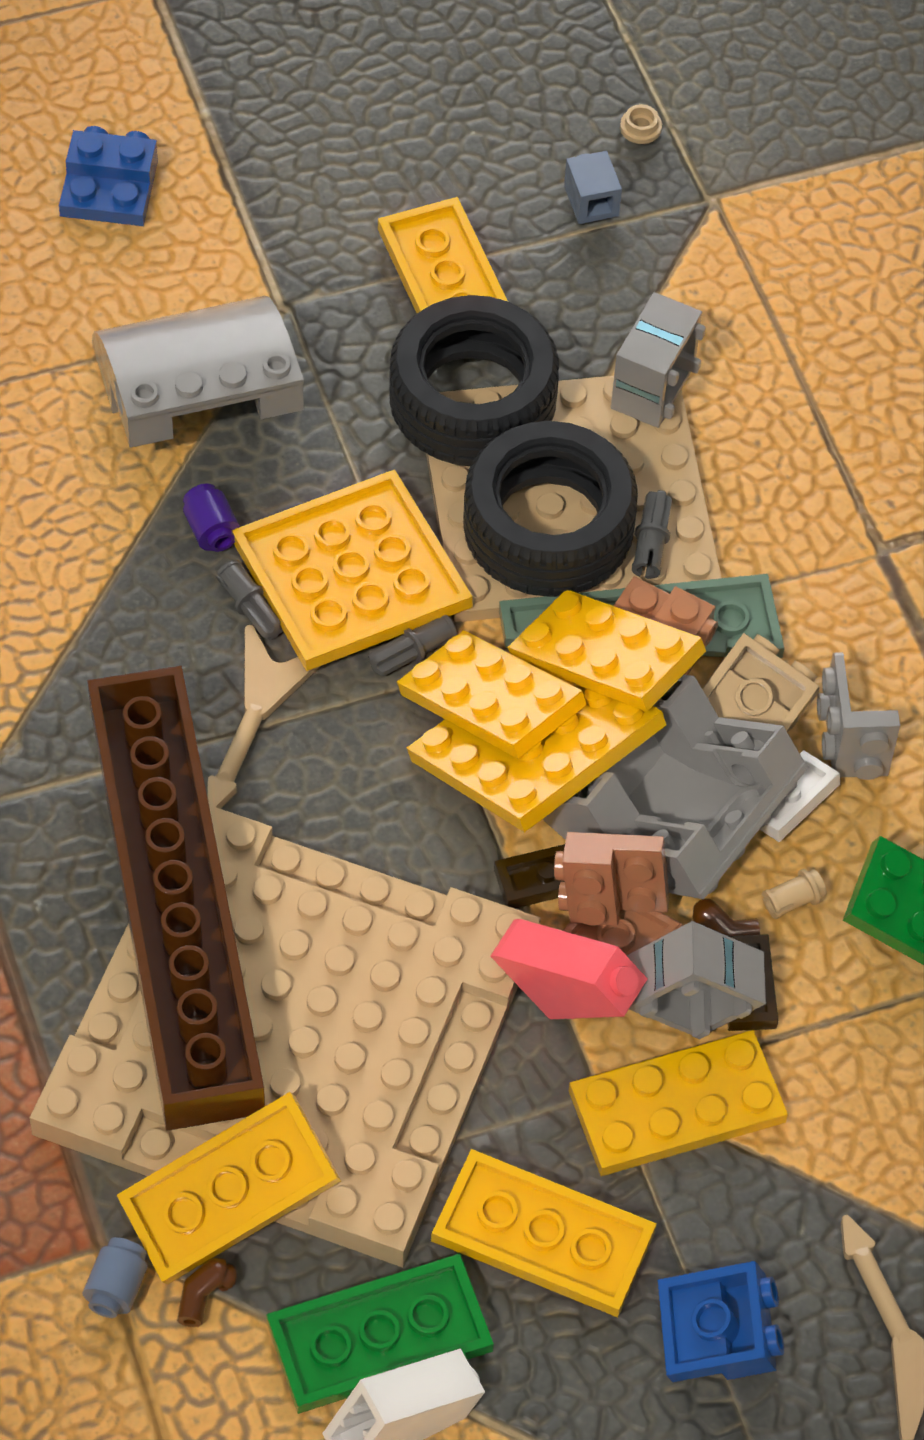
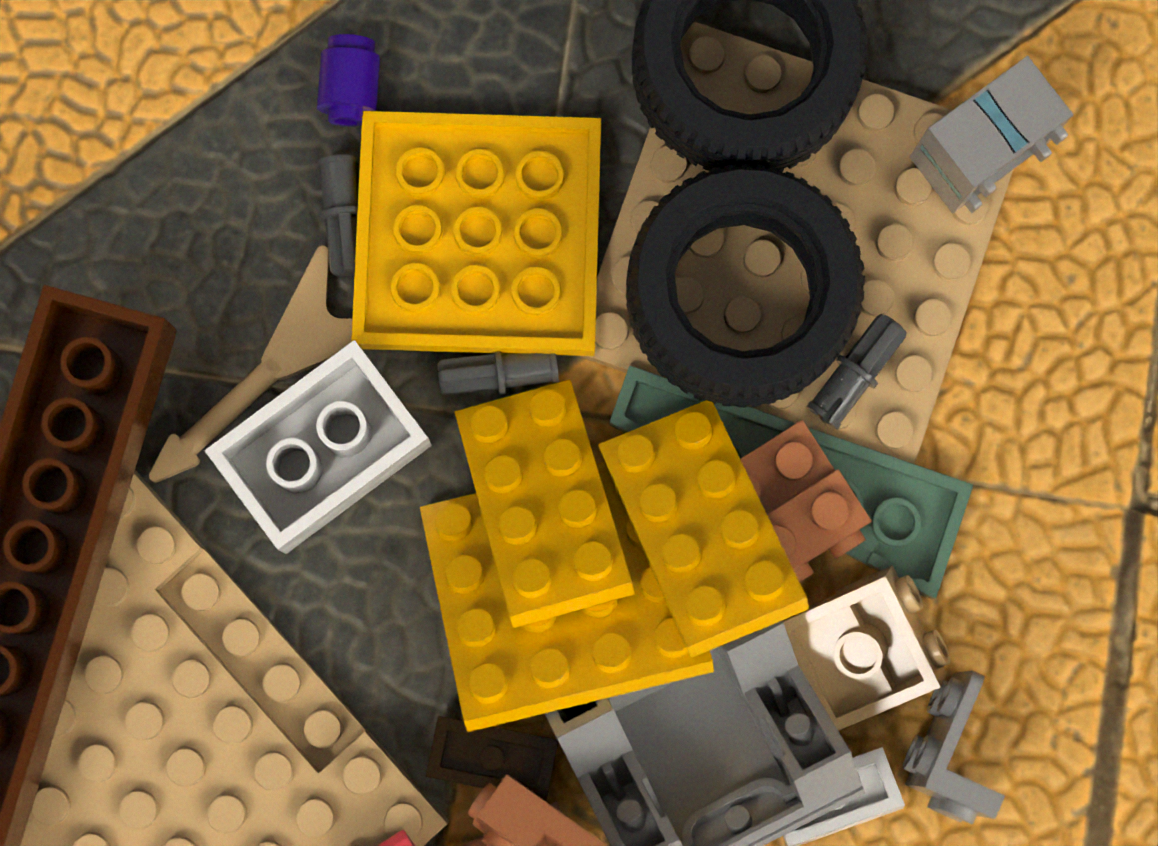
camera: 25 degrees right, 25 degrees up
(319, 732) = (318, 447): none -> white brick

